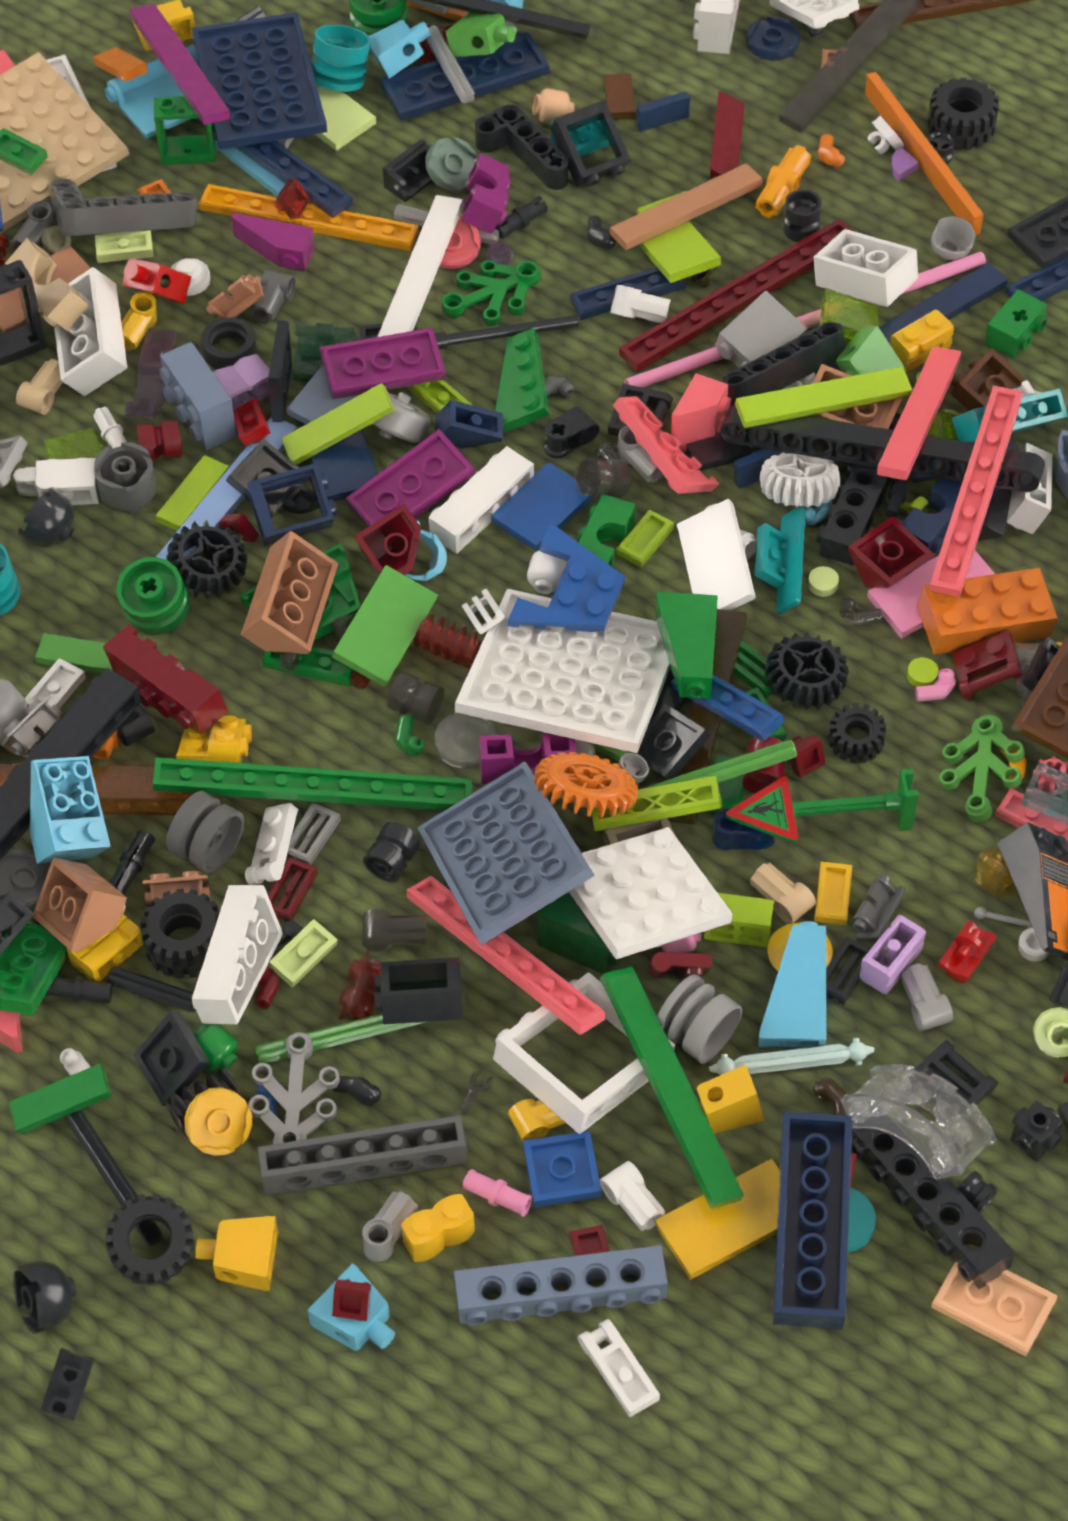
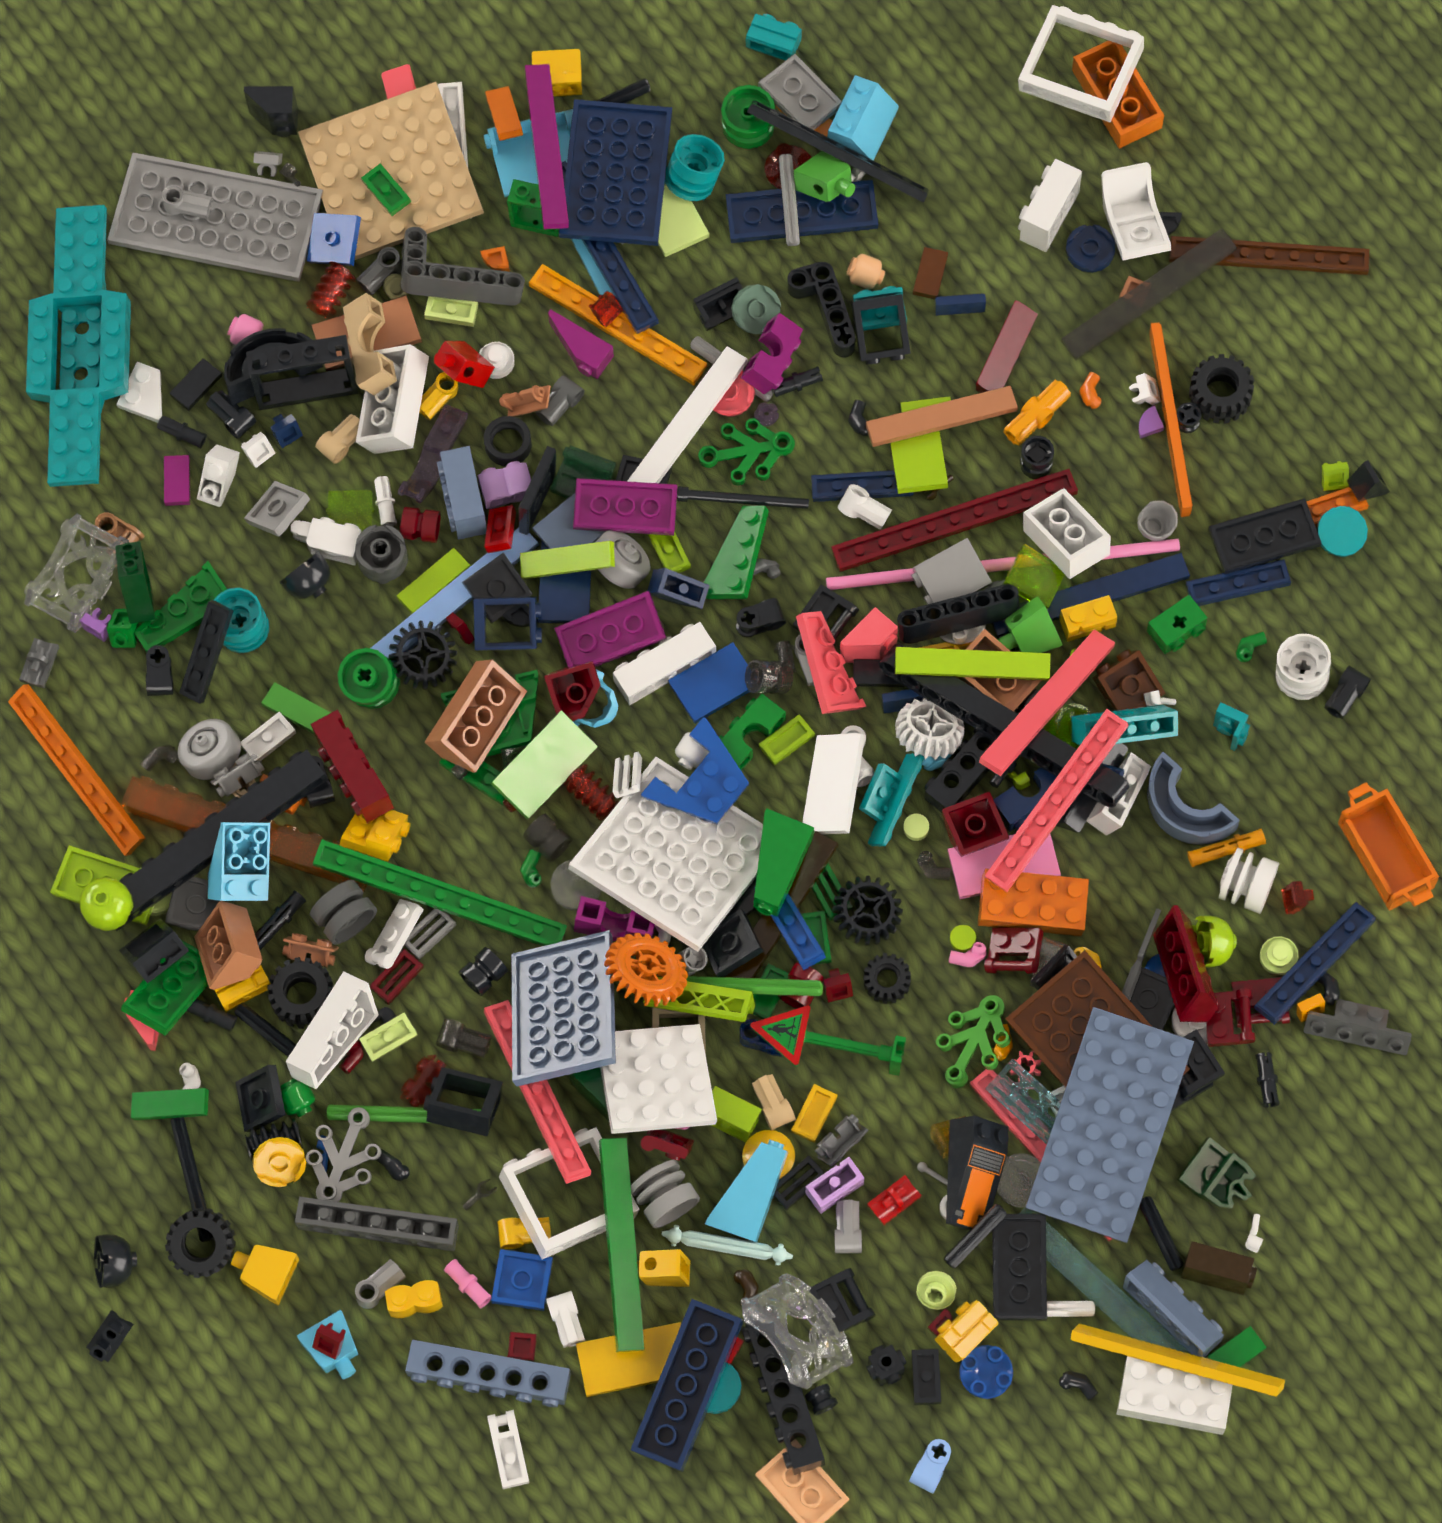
camera: 20 degrees right, 15 degrees up
(398, 46) = (749, 168): medium azure torso -> none

